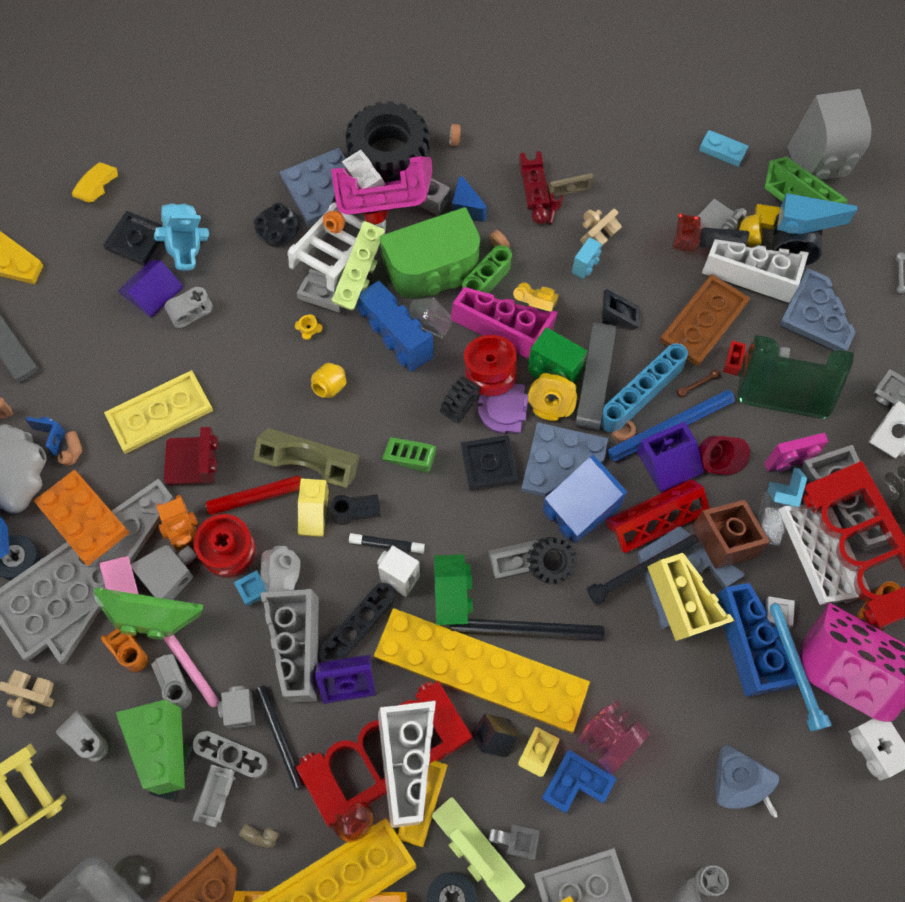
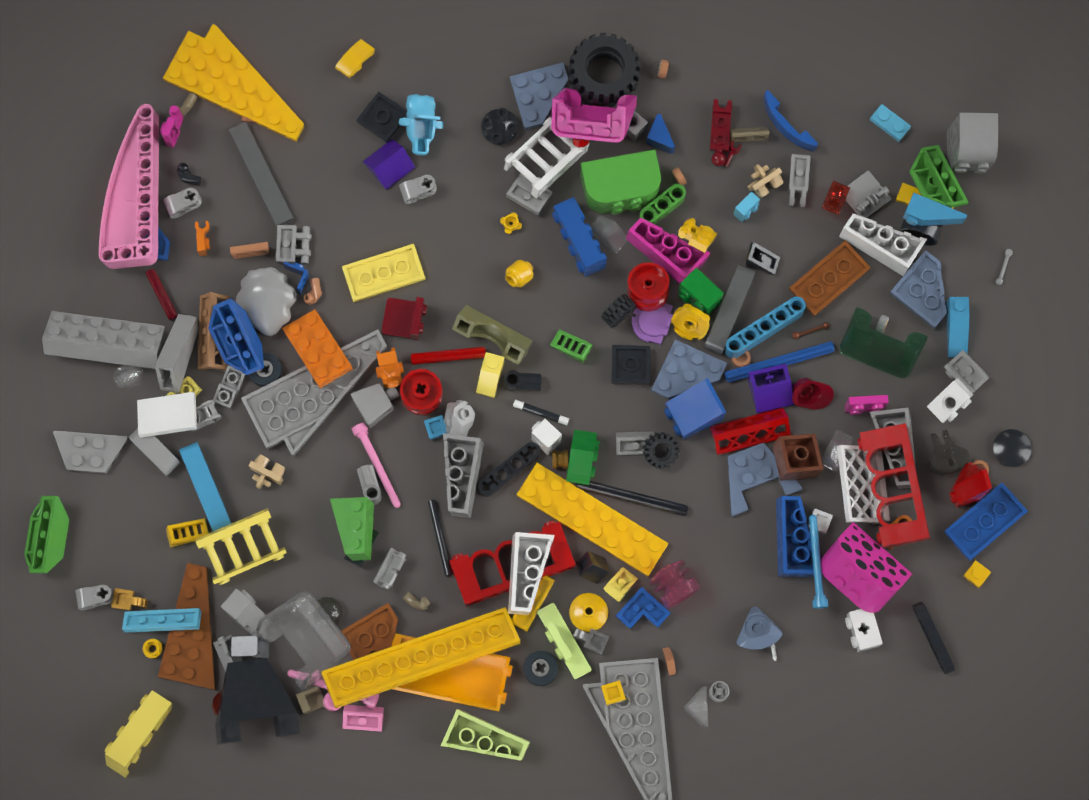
camera: 10 degrees right, 10 degrees up
(30, 397) = (286, 244): none -> light grey plate
(80, 734) = (301, 509): light grey piece -> none
(118, 575) = (341, 406): bright pink slope -> none
(122, 647) = (338, 450): orange piece -> none
(145, 613) = (358, 432): bright green wedge -> none
(215, 740) = (418, 547): light grey beam -> none
(237, 708) = (413, 512): light grey brick -> none
(334, 221) = (546, 138): orange plate -> none
(345, 679) = (493, 507): dark purple slope -> none
(354, 823) = (483, 605): clear red hair -> none
(358, 265) = (559, 183): yellowish green bracket -> none
(361, 168) = (578, 100): white slope -> none
(423, 597) = (560, 459): none -> pearl gold wheel
(500, 815) = (581, 619): none -> yellow dish
(600, 592) = (691, 480): black piece -> none
(630, 848) = (669, 660): none -> nougat tile
(631, 180) = (802, 140): none -> blue slope
(638, 220) = (799, 177): none -> light grey hinge
(685, 598) = (750, 498): light yellow wedge -> none
(708, 235) = (852, 208): black slope -> none
(734, 358) = (844, 315): red piece -> none
(752, 225) = (889, 209): yellow hair -> none
(789, 494) = (848, 433): medium azure panel -> none
(872, 343) = (957, 325): none -> dark azure slope

